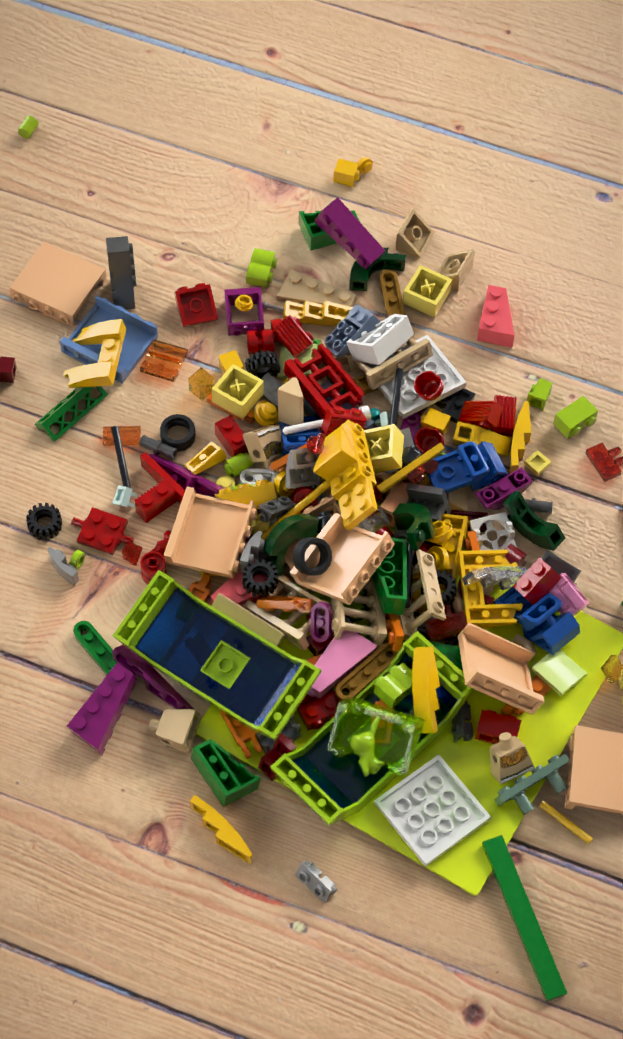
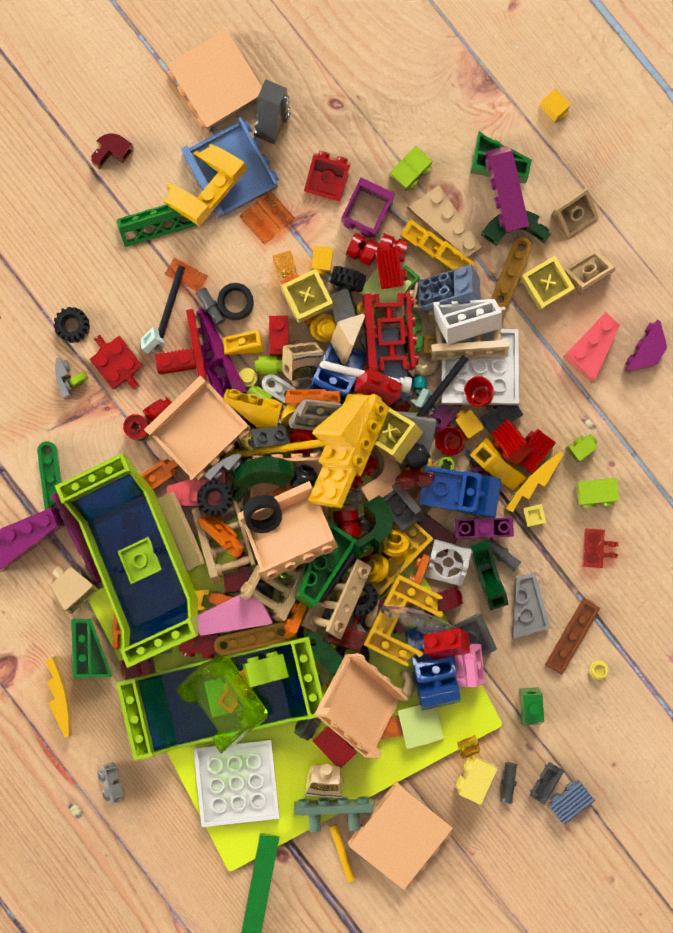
camera: 30 degrees right, 25 degrees up
(131, 553) = (129, 398): clear red plate -> none
(244, 303) = (367, 205): yellow plate -> none
(316, 444) = (332, 405): clear red plate -> none
(321, 620) = (239, 572): magenta plate -> none
(363, 746) = (204, 707): lime animal -> none
(365, 165) = (578, 107): yellow plate -> none
(374, 401) = (427, 369): none -> tan arm
(400, 475) = (406, 470): yellow tile -> none
(424, 685) = (285, 687): yellow slope -> none
(541, 298) = (648, 349): none -> magenta slope
(583, 533) = (528, 607): none -> light grey wing

